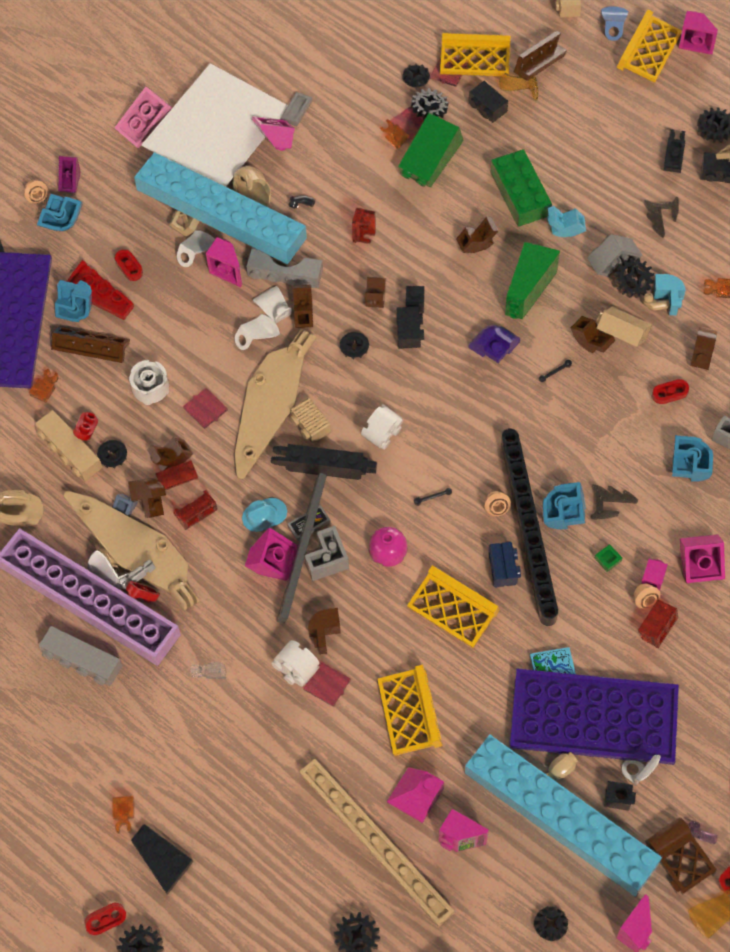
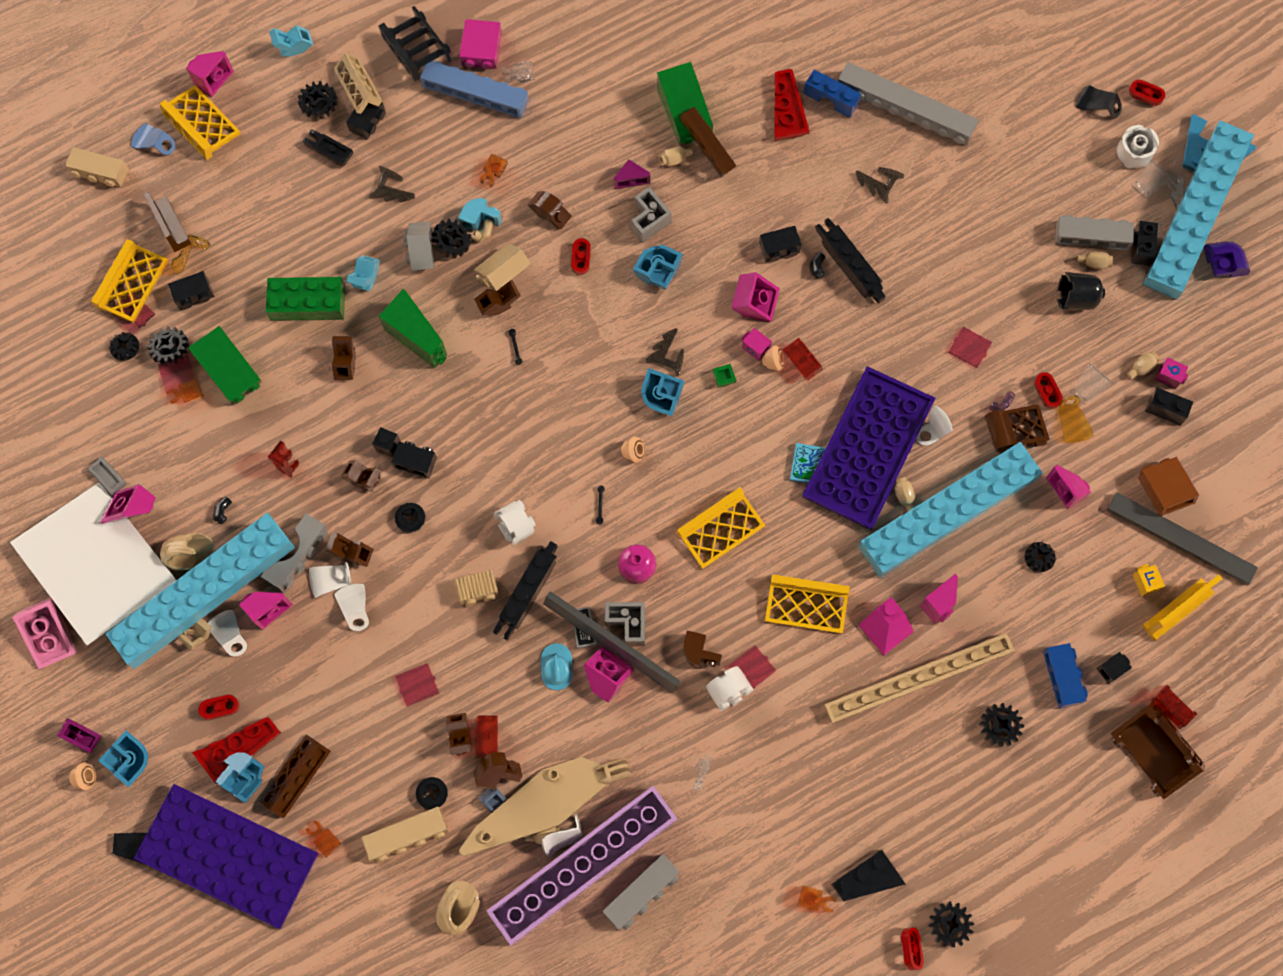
camera: 70 degrees left, 10 degrees up
(85, 426) = (392, 809): red plate -> none
(137, 573) = (580, 808): light grey axle -> none
(142, 591) = (599, 809): red plate -> none
(149, 382) = (359, 724): white brick -> none
(196, 510) = (526, 730): clear red hinge -> none
(269, 400) = (437, 619): tan wing -> none
(494, 342) = (463, 388): dark purple brick -> none
(503, 564) = (696, 467): dark blue brick -> none
(529, 533) = (672, 437): black beam -> none
(612, 801) = (945, 462): black brick -> none

